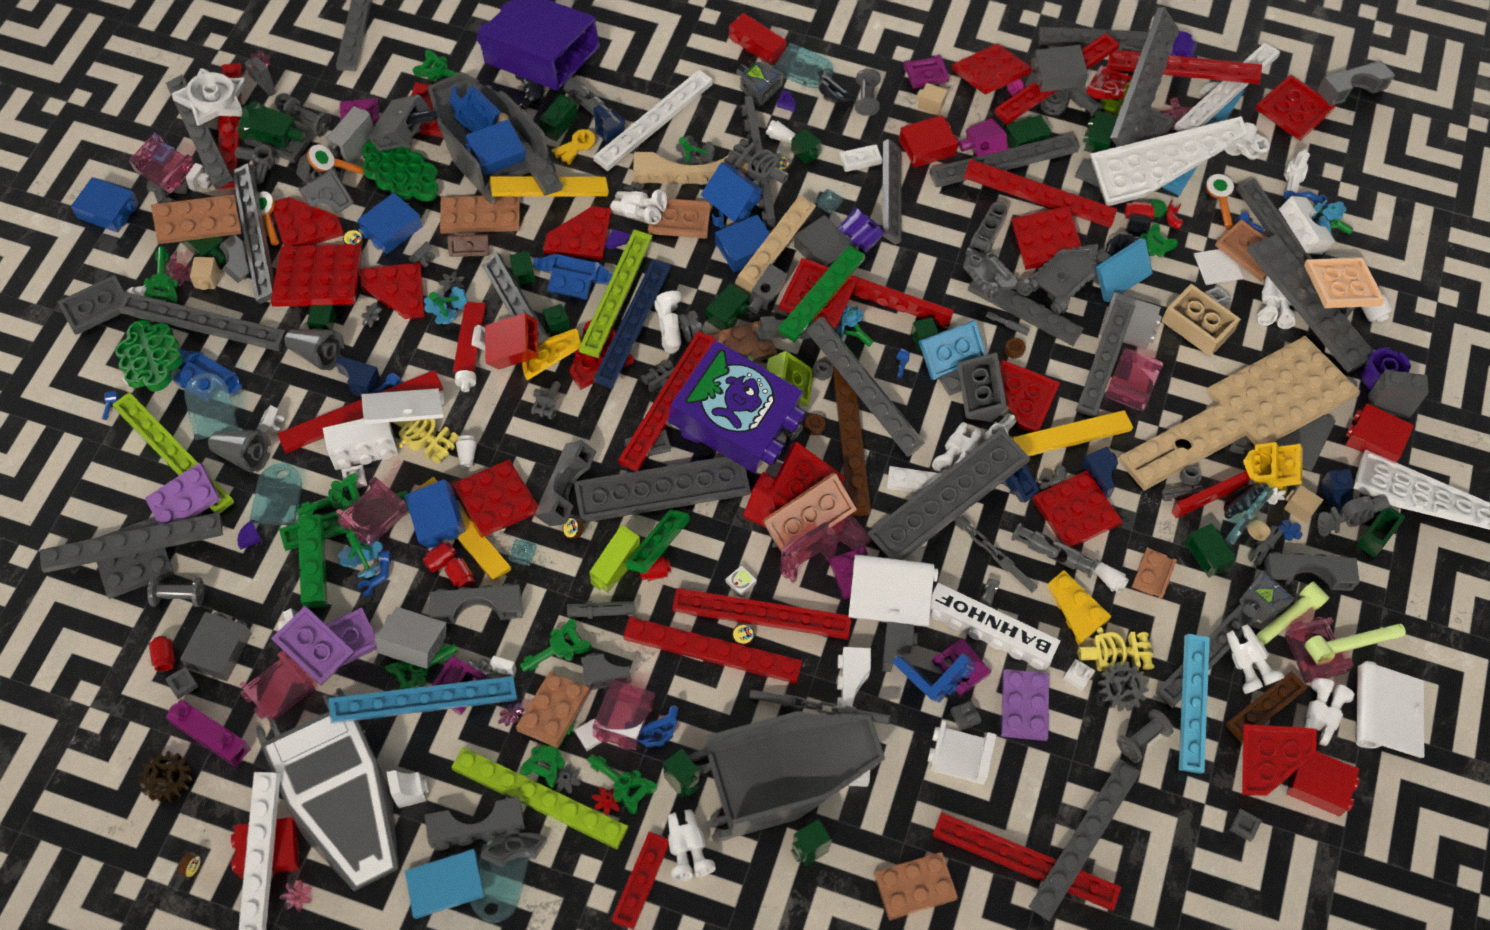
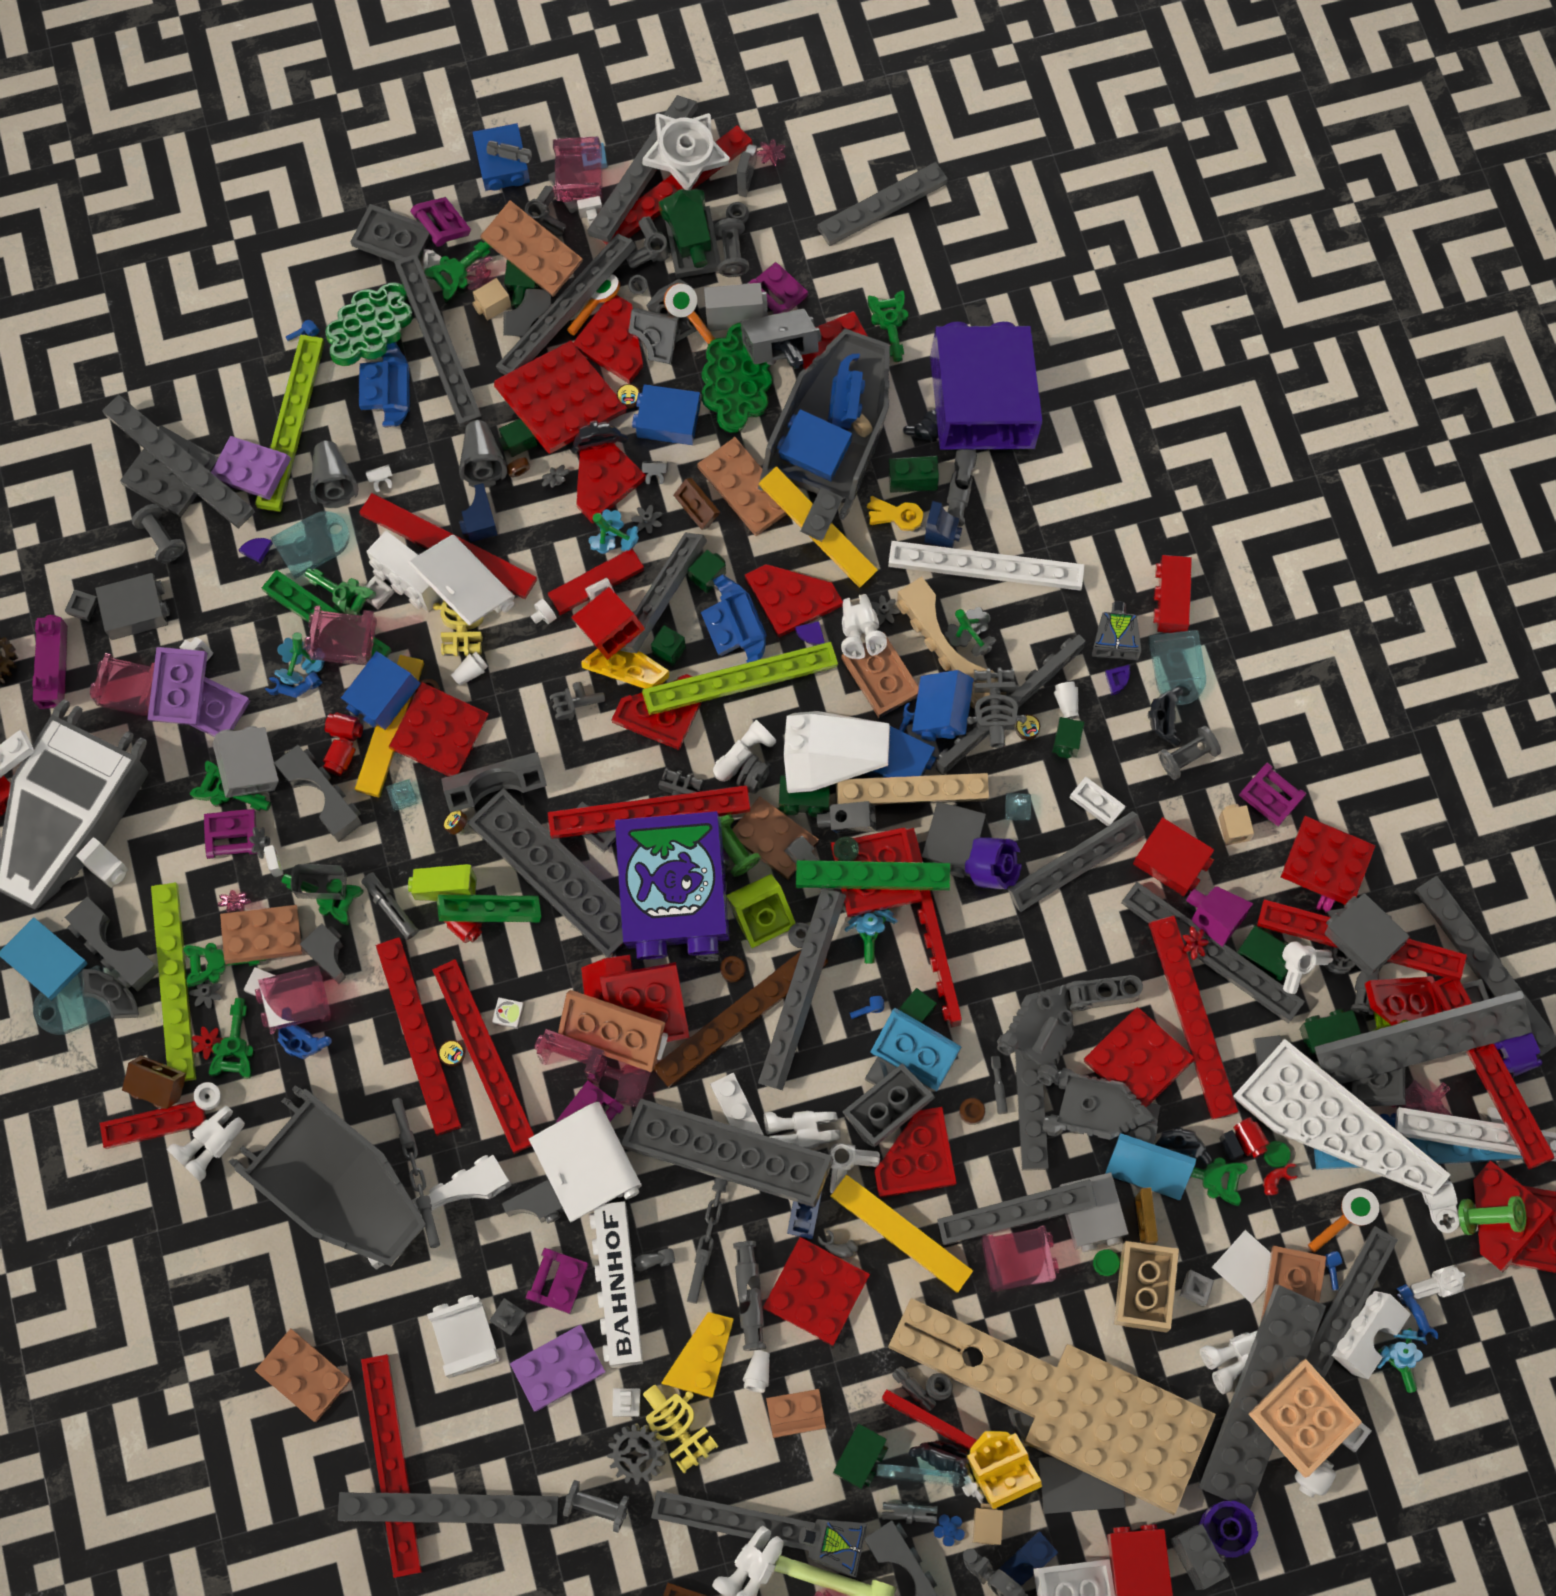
camera: 60 degrees right, 10 degrees up
(109, 192) = (509, 151): none -> dark grey axle
(115, 266) = (445, 216): none -> magenta plate
(162, 653) = (96, 568): red brick -> none
(210, 408) = (354, 418): clear light blue tile -> none
(279, 184) = (641, 282): none -> dark grey hinge
(312, 561) = (259, 623): green brick -> none
(344, 329) = (518, 467): none -> reddish brown tile
(366, 268) = (597, 434): none -> black piece
(392, 379) = (499, 548): blue hand -> none
(421, 699) = (185, 816): dark azure plate -> none
(536, 640) = (303, 871): none -> dark grey piece
(612, 855) = (153, 1082): none -> reddish brown brick
(632, 324) = (715, 718): dark blue plate -> none
(651, 823) = (205, 1091): none -> white tile
(681, 774) = (266, 1091): dark green piece -> none
(713, 267) = (831, 749): none -> white wedge
(791, 297) = (846, 849): none -> clear green tile
(810, 843) = (273, 1251): dark green piece -> none
(946, 683) = (506, 1254): blue bracket -> none
(995, 161) = (1195, 942): none -> red plant
(1049, 113) = (1300, 961): none -> white axle
(1101, 467) = (881, 1286): dark blue arch -> none
(1156, 290) = (1146, 1217): none -> pearl gold tile
(1166, 337) = (1106, 1262): none -> green piece
(1194, 704) = (662, 1536): medium azure plate -> none
(1258, 530) = (913, 1494): tan tile -> none
(1274, 119) = (1513, 1213): none -> bright green hose
(1276, 117) = (1498, 1240): none -> red plate

